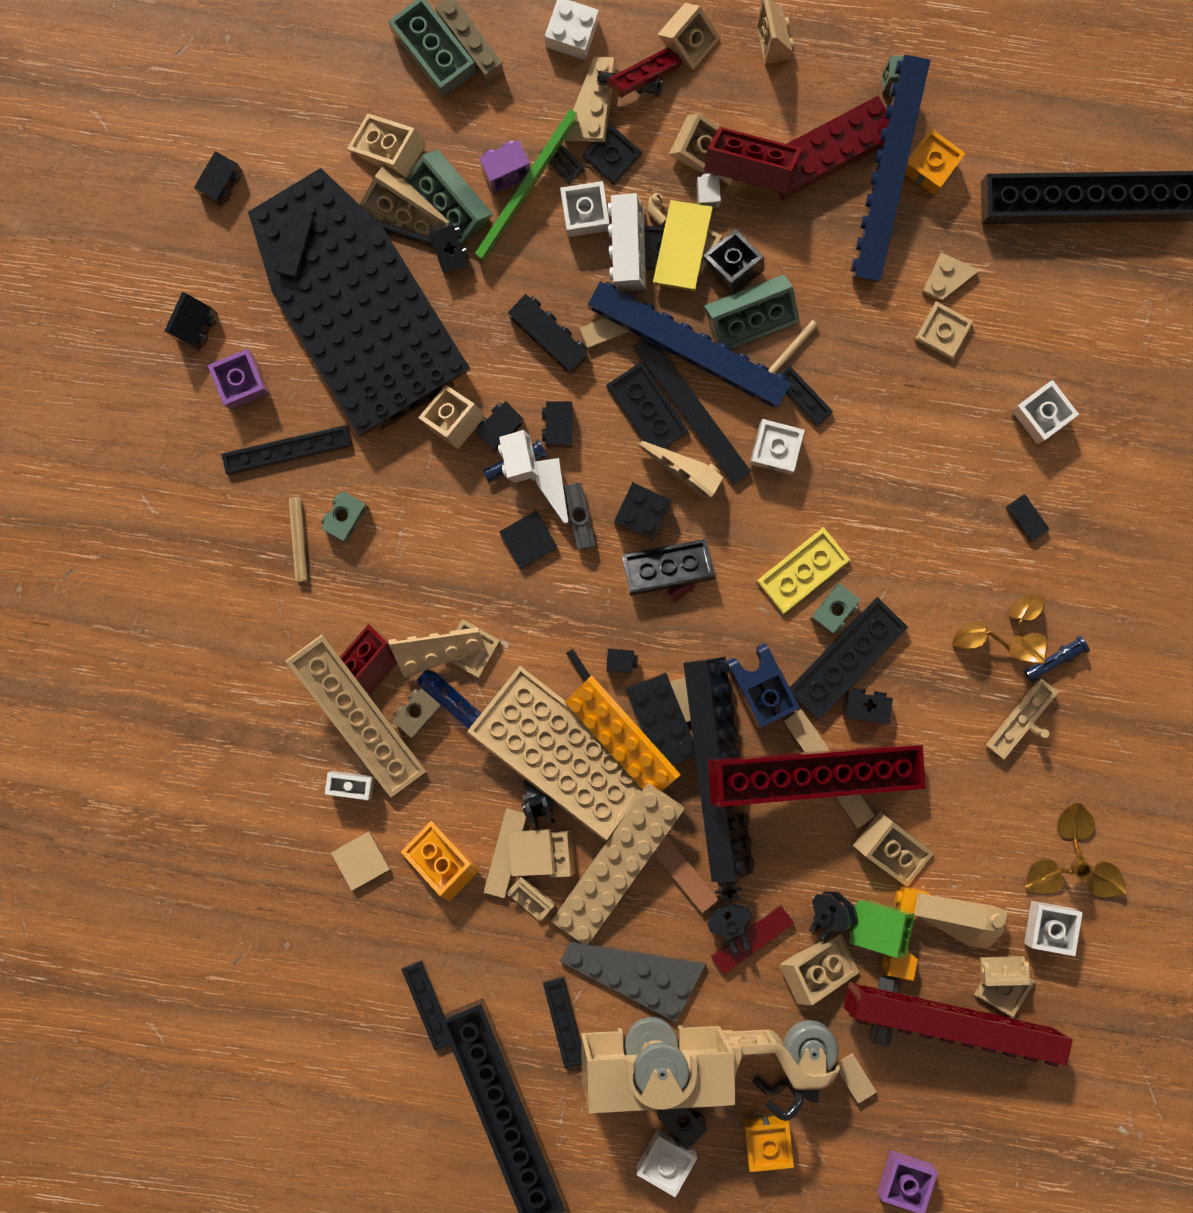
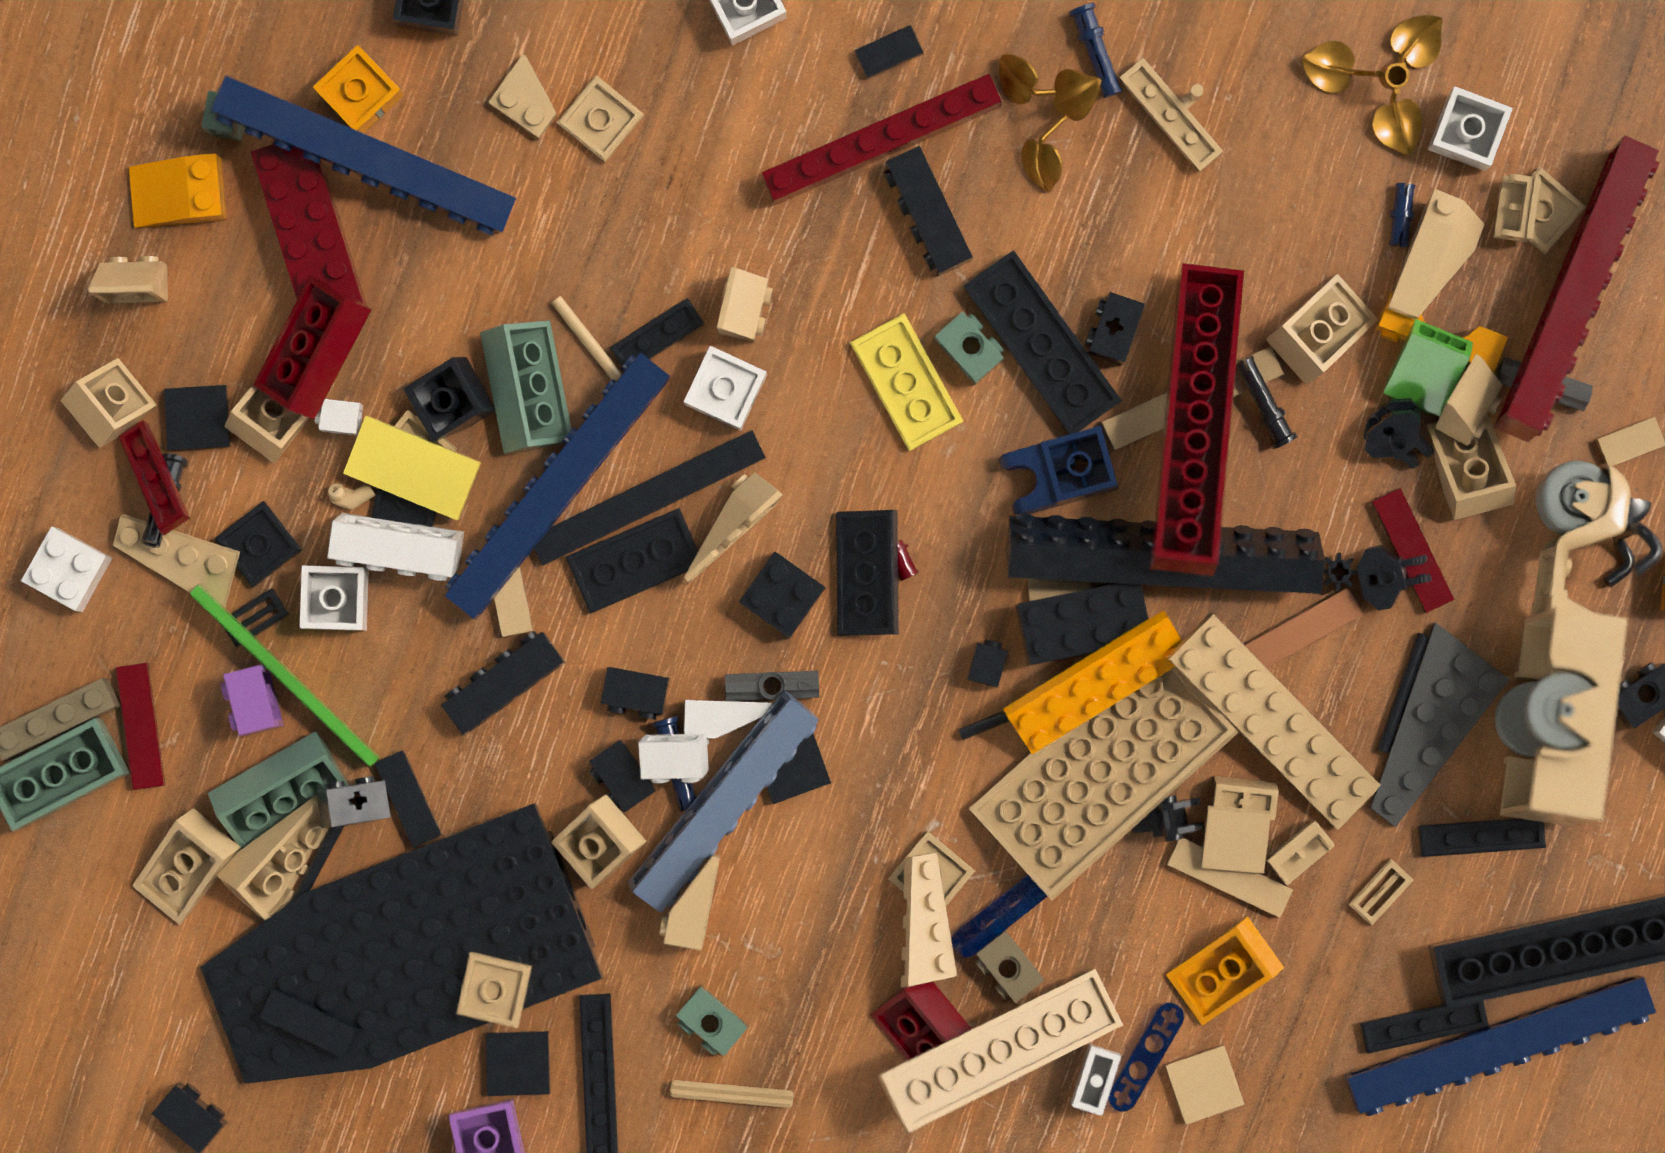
camera: 75 degrees left, 0 degrees up
(293, 392) = (518, 1063): none -> black tile
(337, 363) = (494, 989): none -> tan tile
(371, 820) = (1141, 1054): none -> clear blue beam
(411, 488) = (690, 915): none -> tan slope
(423, 1061) = (1500, 1044): none -> dark blue brick
(458, 285) = (408, 799): none -> black tile
(475, 98) = (140, 726): none -> dark red tile
(494, 496) = (723, 801): none -> sand blue brick
(529, 968) = (1362, 911): none -> tan tile
(652, 949) = (1402, 693): none -> black bar
(689, 96) = (197, 417): none -> black tile
(827, 825) = (1271, 415): none -> black pin
(835, 448) = (743, 305): none -> tan slope
(841, 57) = (178, 191): none -> light orange slope
(863, 962) = (1470, 403): none -> tan slope
(924, 563) = (928, 210): none -> black brick
(967, 523) = (882, 139): none -> dark red brick
(983, 891) = (1402, 215): none -> dark blue pin

